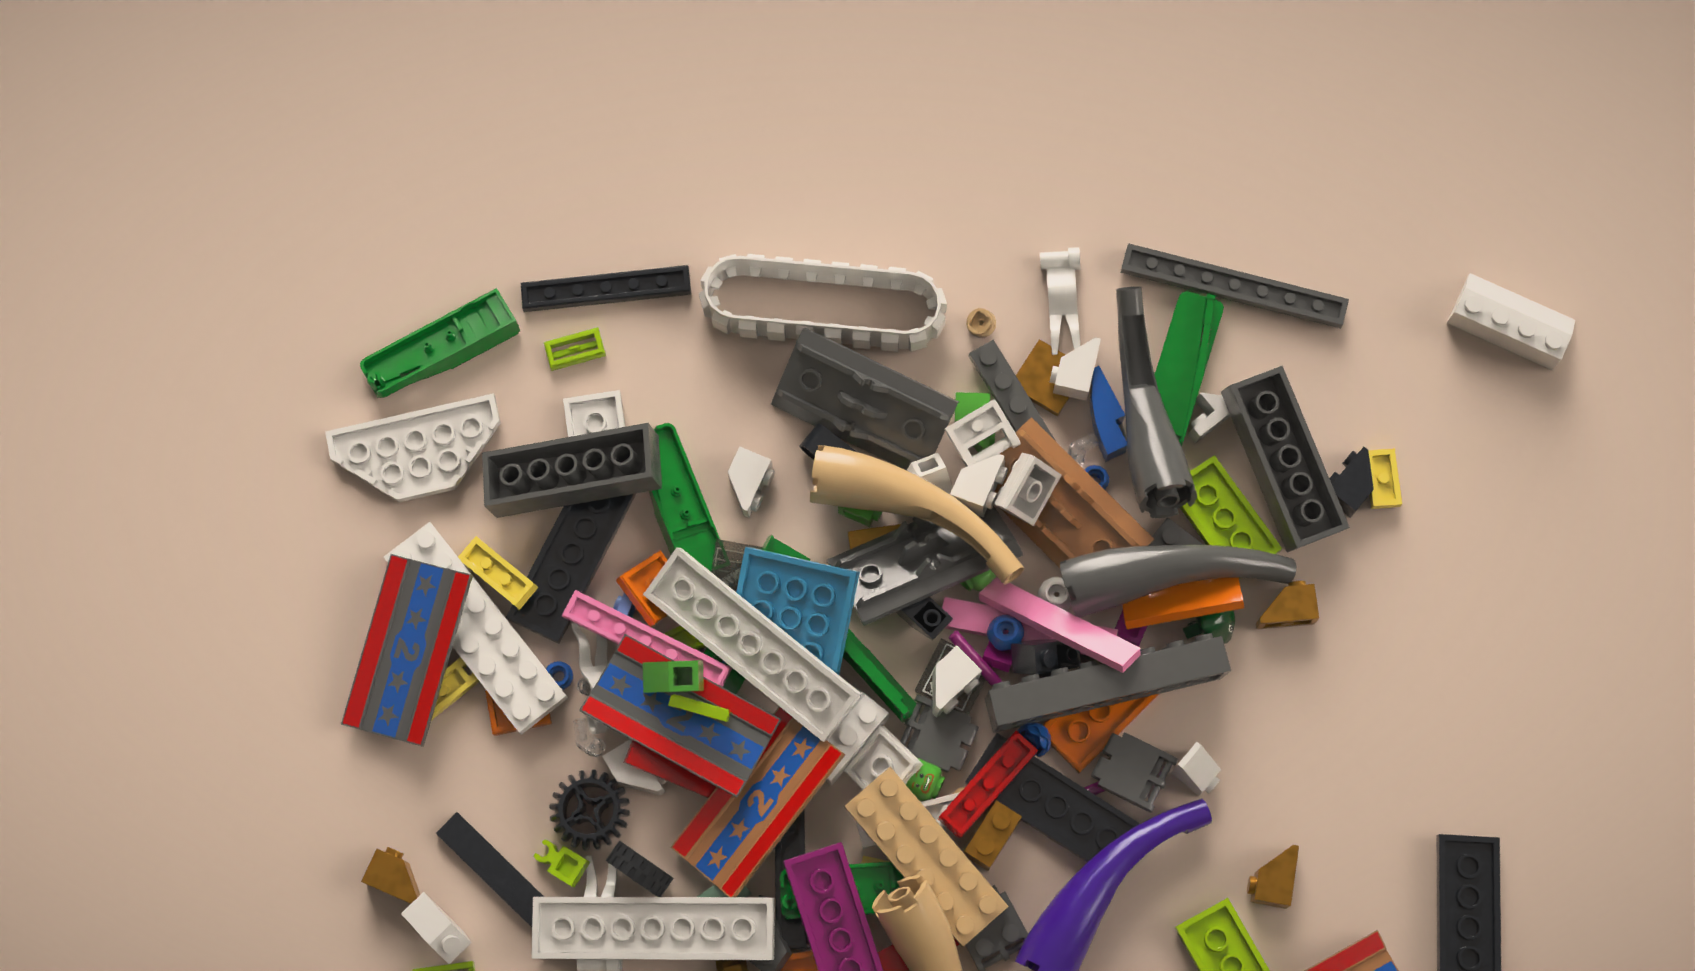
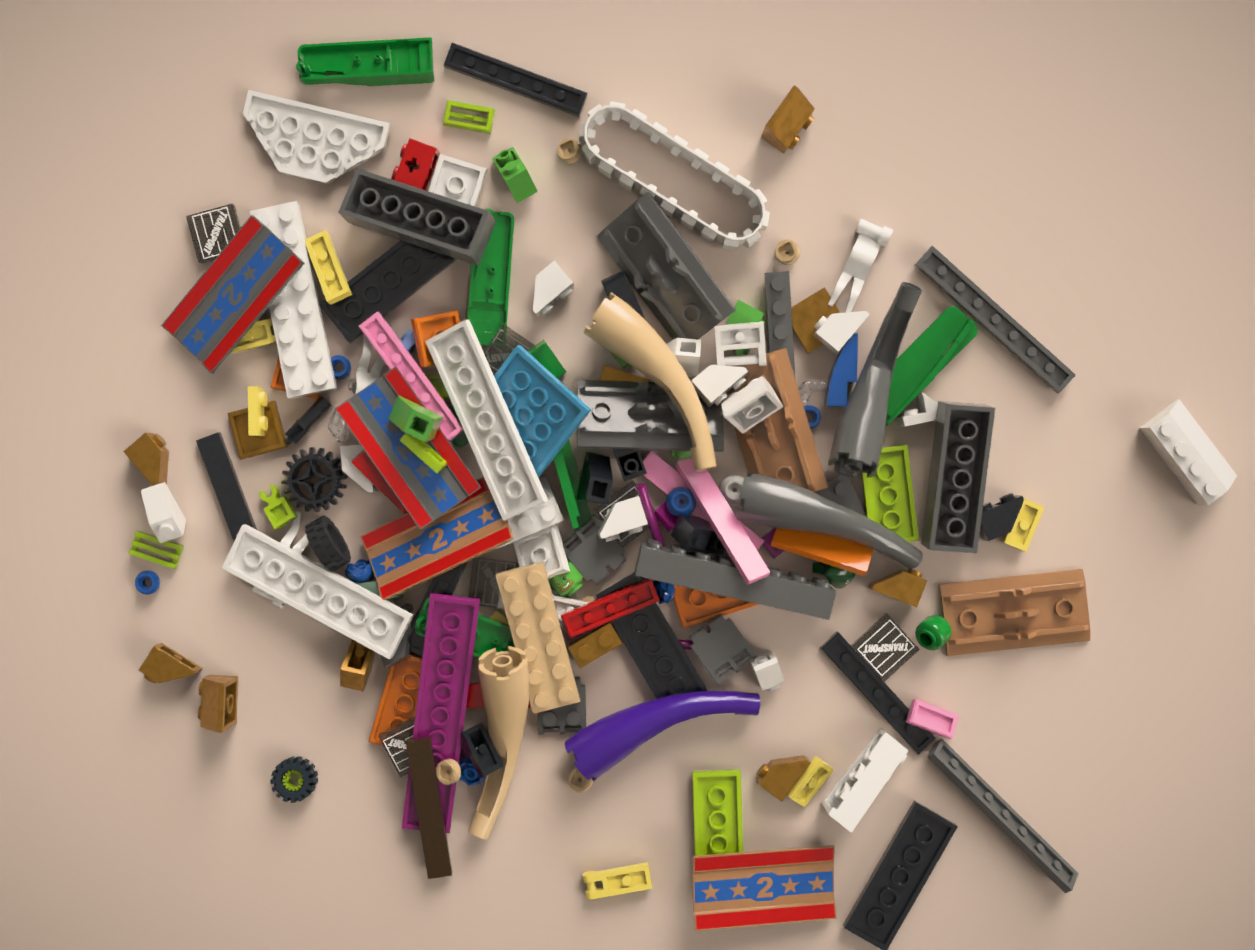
camera: 25 degrees right, 15 degrees up
(352, 598) = (212, 231): none -> clear smoke tile
(497, 774) = (256, 420): none -> light yellow plate
(499, 789) = (253, 446): none -> pearl gold tile
(539, 409) = (412, 154): none -> red brick
(551, 749) = (307, 420): none -> black piece
(653, 382) = (514, 174): none -> bright green slope
(689, 885) = (359, 571): none -> blue plate
(698, 331) = (569, 150): none -> tan tile
(836, 825) = (484, 582): none -> clear smoke tile
(901, 656) = (595, 479): none -> black slope
(913, 192) = (788, 121): none -> pearl gold slope
(1310, 682) = (885, 647): none -> clear smoke tile
(1310, 870) = (810, 781): none -> light yellow plate
(1330, 737) = (875, 691): none -> black tile
(1352, 637) = (933, 632): none -> green head
(1368, 835) = (864, 780): none -> white wedge
(1404, 733) = (932, 719): none -> bright pink tile
(1428, 576) = (1016, 612): none -> medium nougat hinge
(1542, 801) = (1003, 816): none -> dark grey plate

